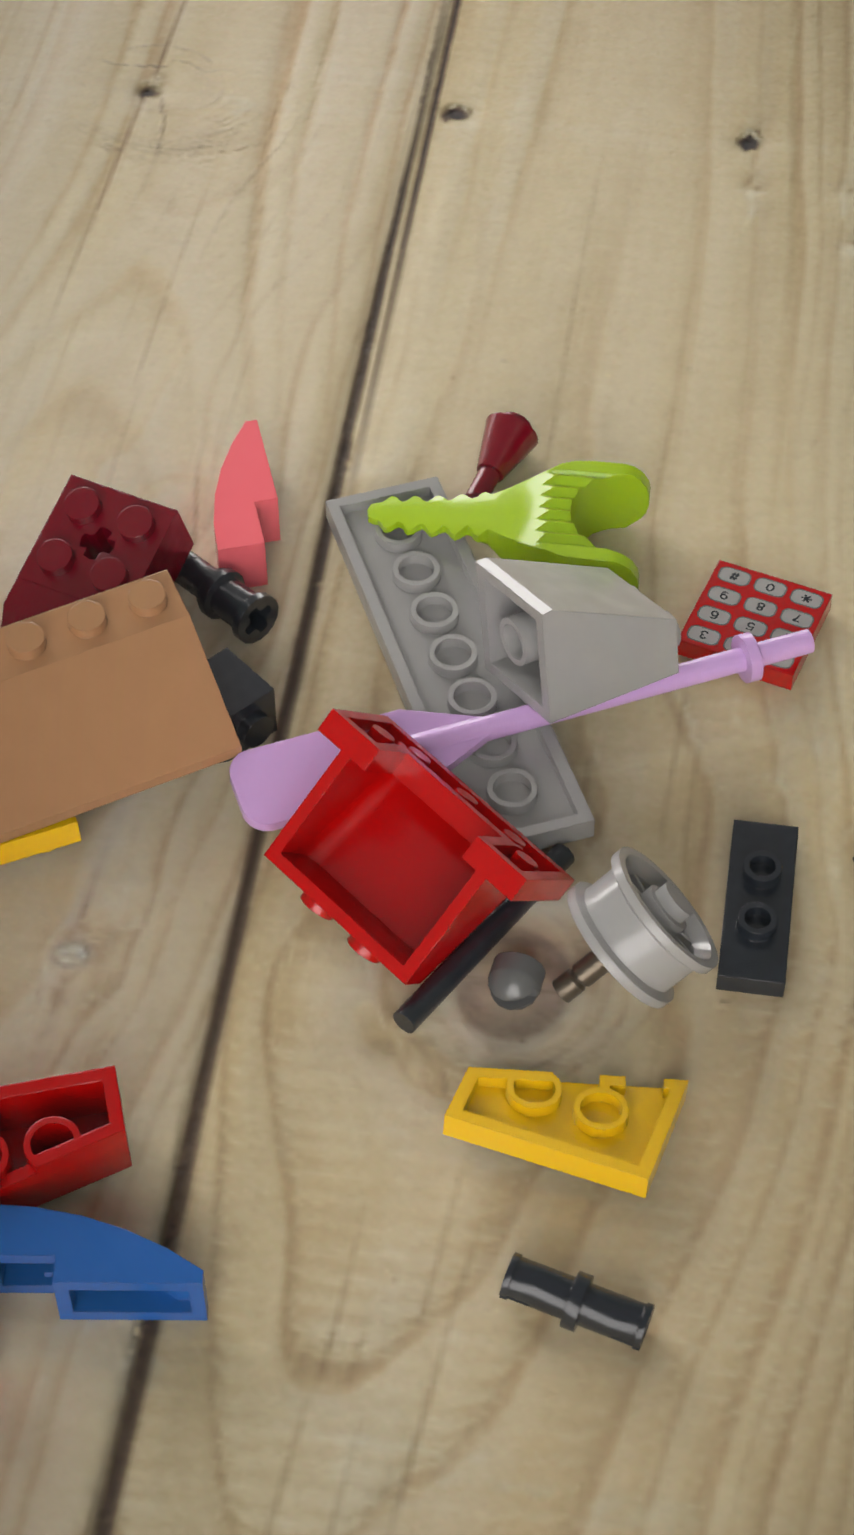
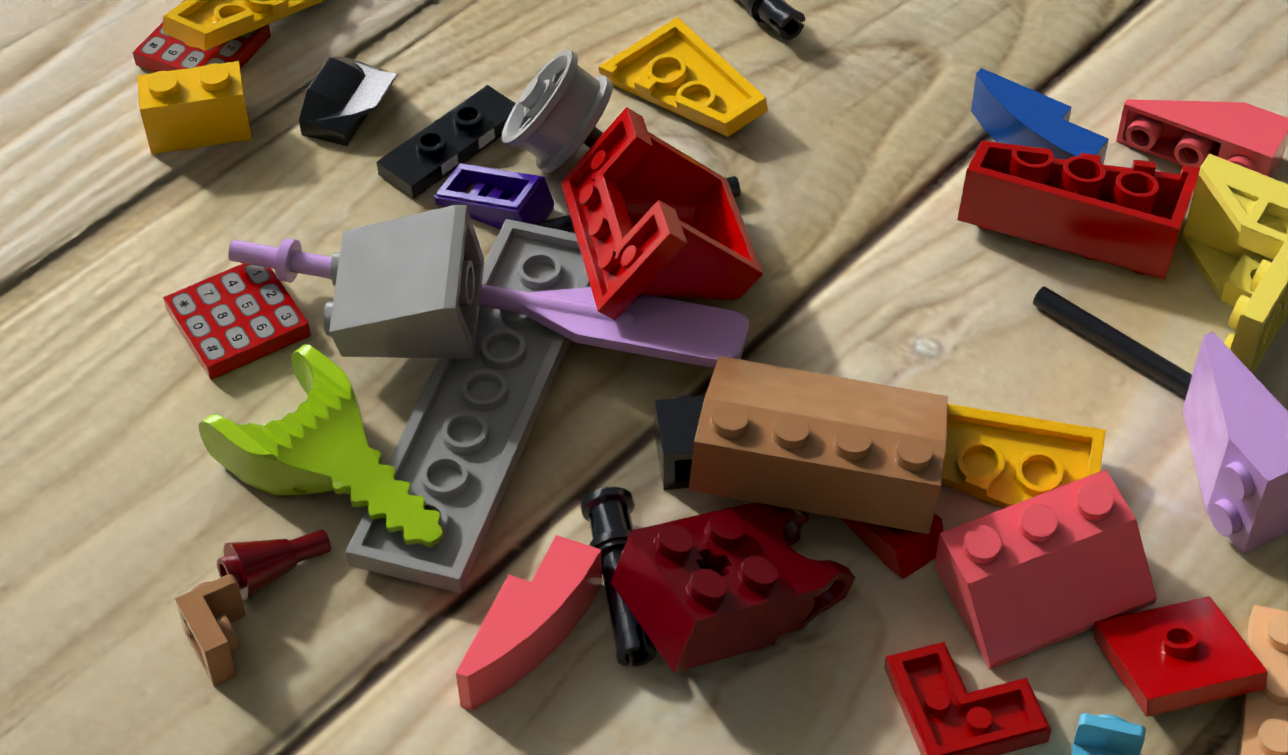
camera: 145 degrees left, 0 degrees up
(484, 382) = (206, 623): none -> medium nougat bracket
(599, 843) = (527, 195): none -> dark purple slope

